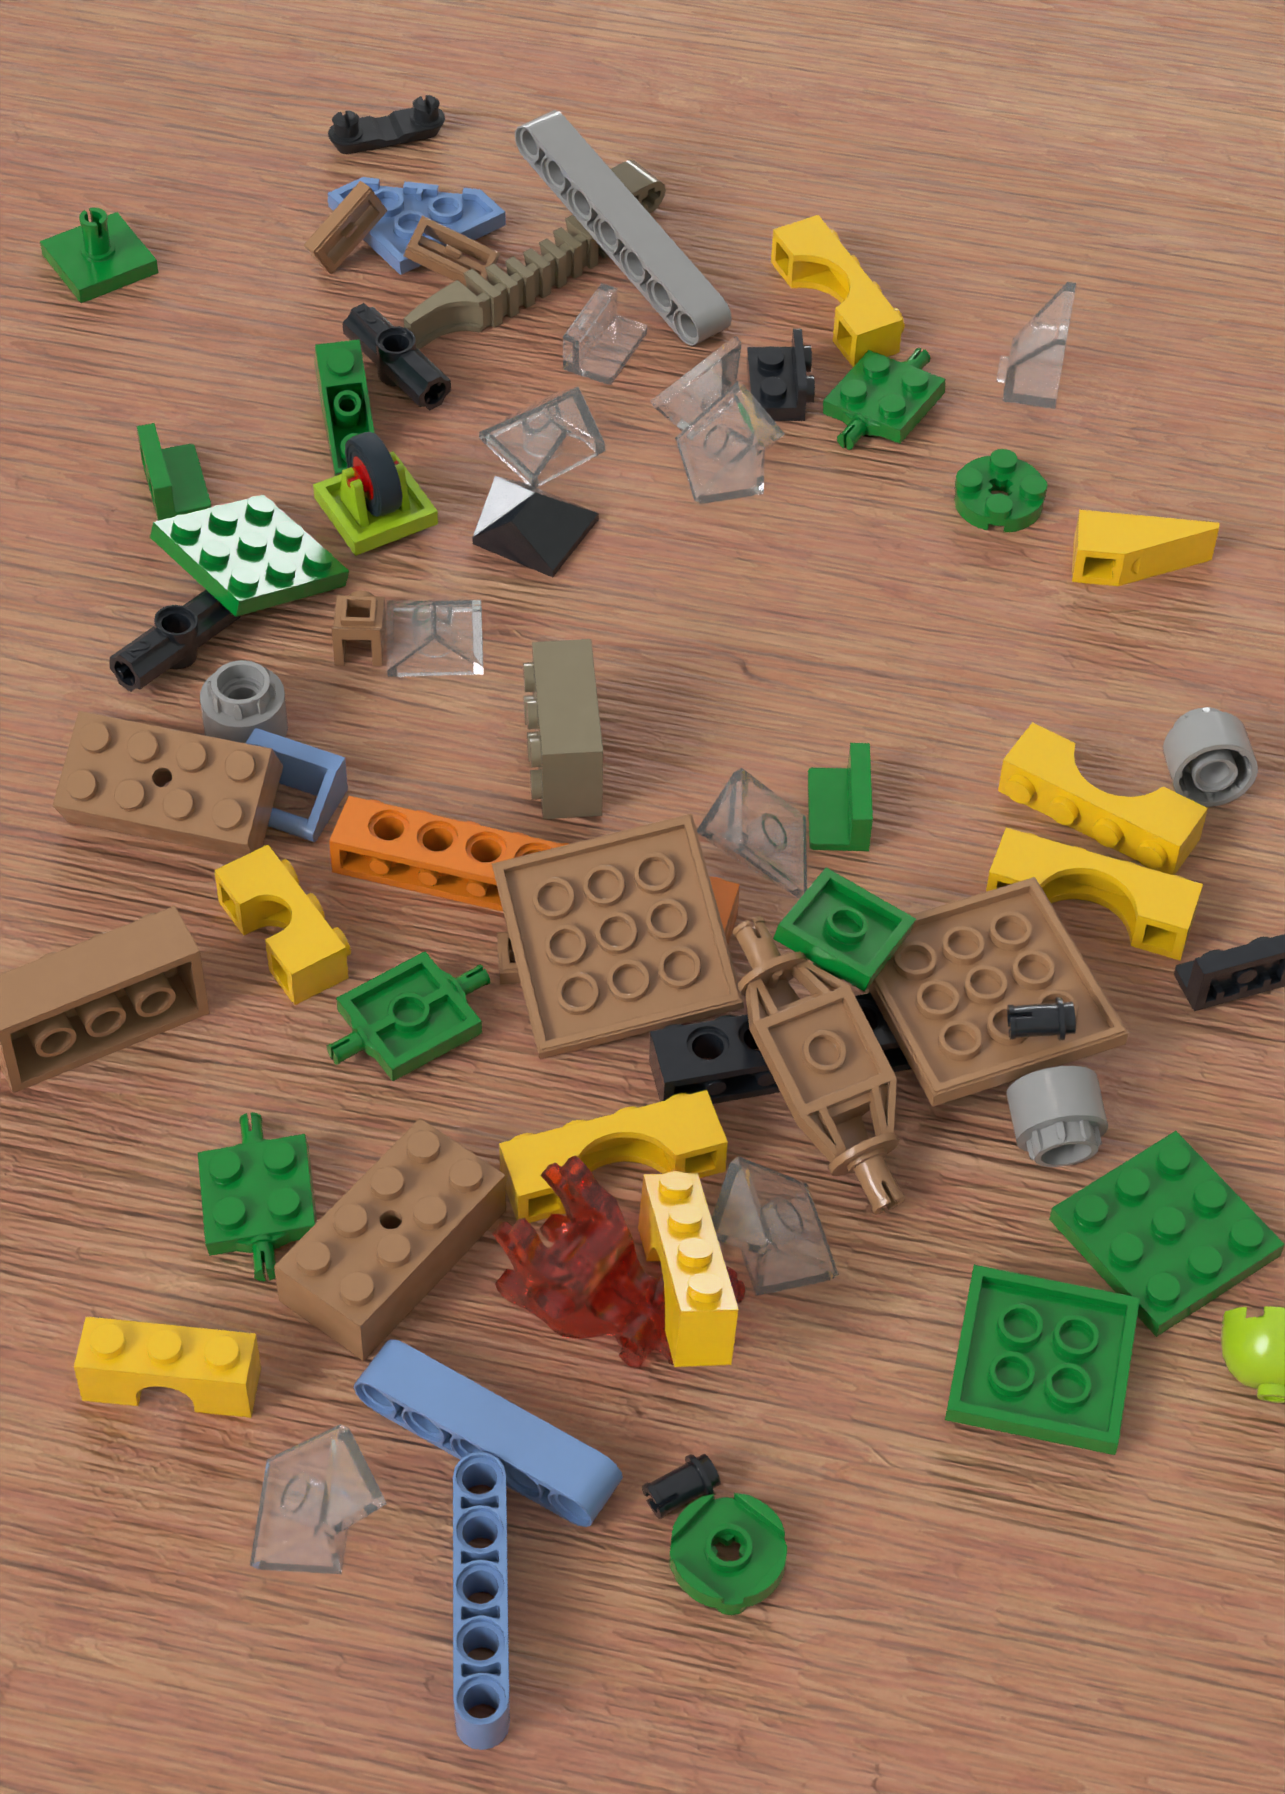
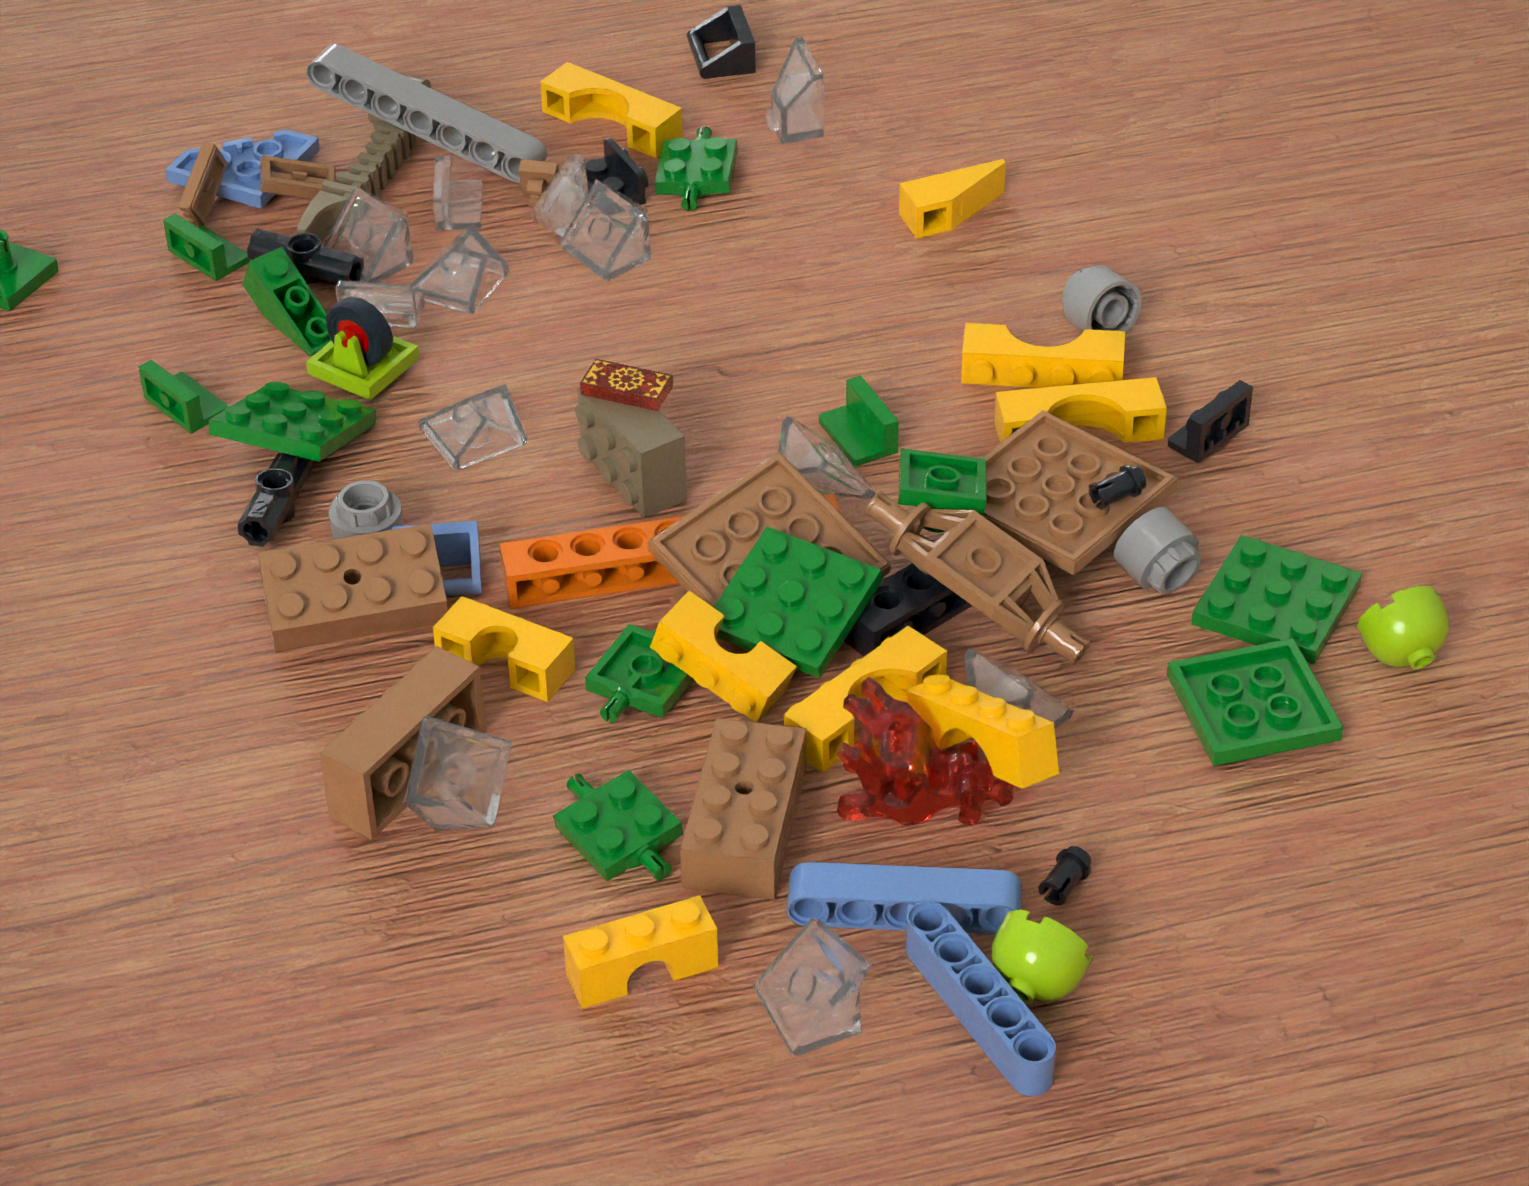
camera: 25 degrees left, 10 degrees down
(111, 1064) = (456, 776): none -> clear slope
(310, 302) = (203, 248): none -> green panel
(359, 618) = (412, 432): medium nougat window -> none
(403, 126) = (155, 125): black piece -> none
(437, 442) = (396, 302): none -> clear panel
(478, 356) = (375, 233): none -> clear slope
(498, 1081) = (745, 681): none -> yellow arch
(531, 525) = (493, 334): black slope -> none
(560, 1589) = (1037, 958): none -> lime cylinder
(580, 662) = (626, 384): none -> tile
(600, 1006) = (795, 600): none -> green plate
(694, 346) = (536, 177): none -> medium nougat tile
(721, 1583) = (1140, 920): green plate -> none
(1000, 473) = (826, 198): green plate -> none
(1021, 273) = (724, 26): none -> black tile

